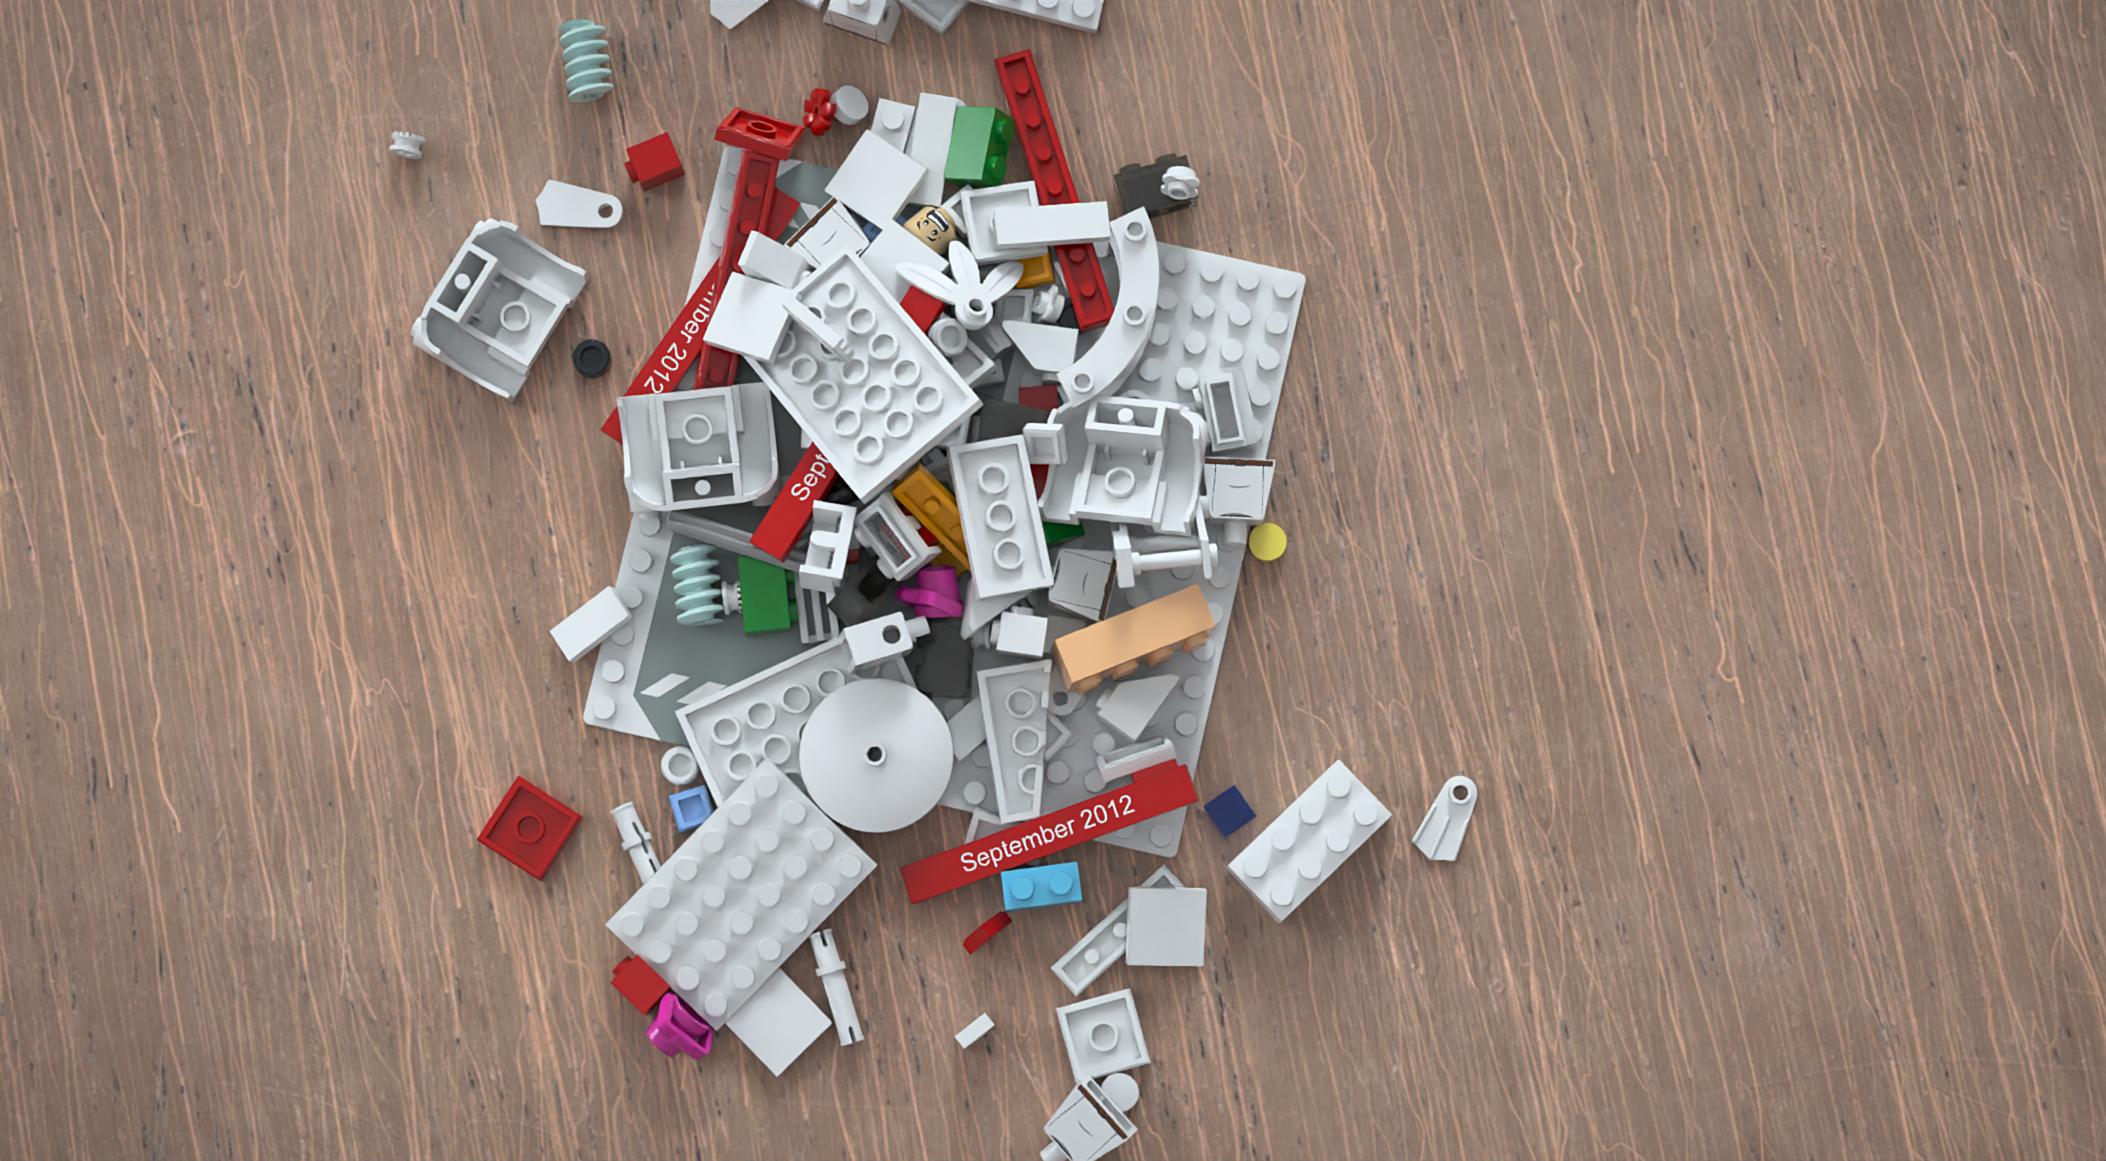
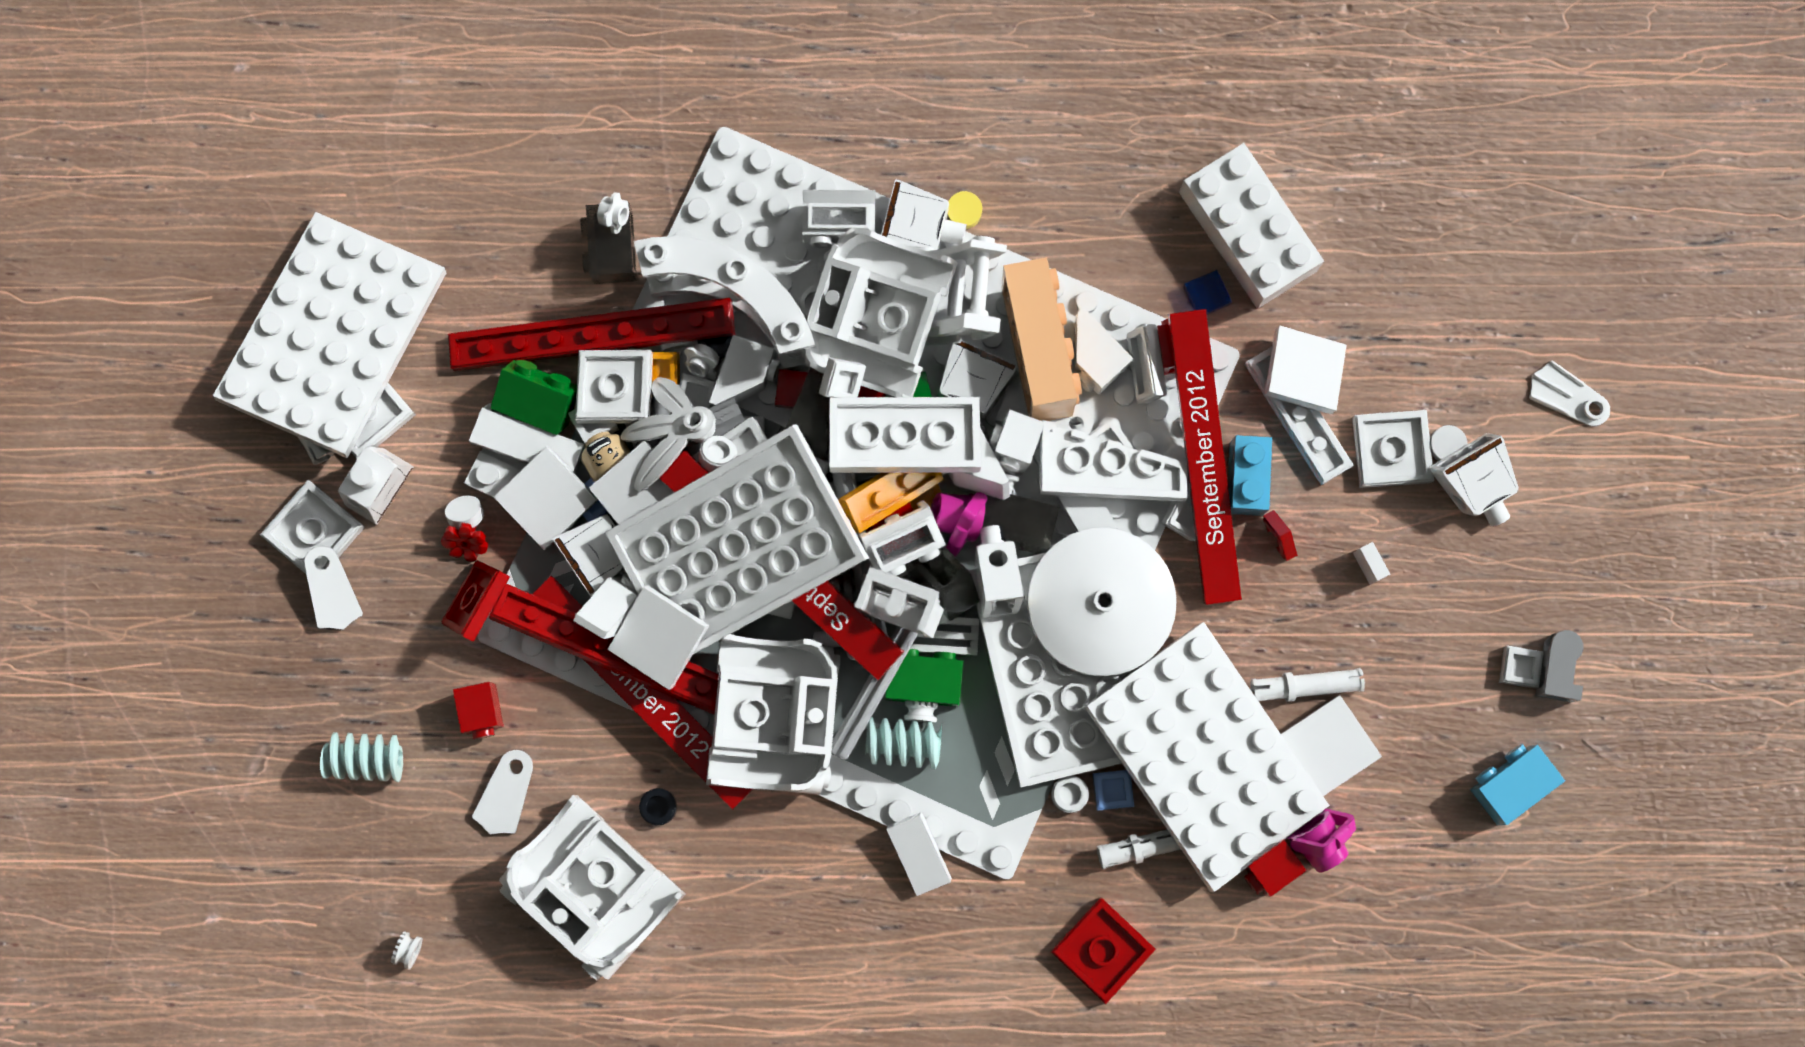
camera: 80 degrees left, 0 degrees up
(817, 328) = (686, 572): white tile -> none
(1051, 225) = (627, 340): white tile -> none
(1446, 821) = (1250, 104): white piece -> none

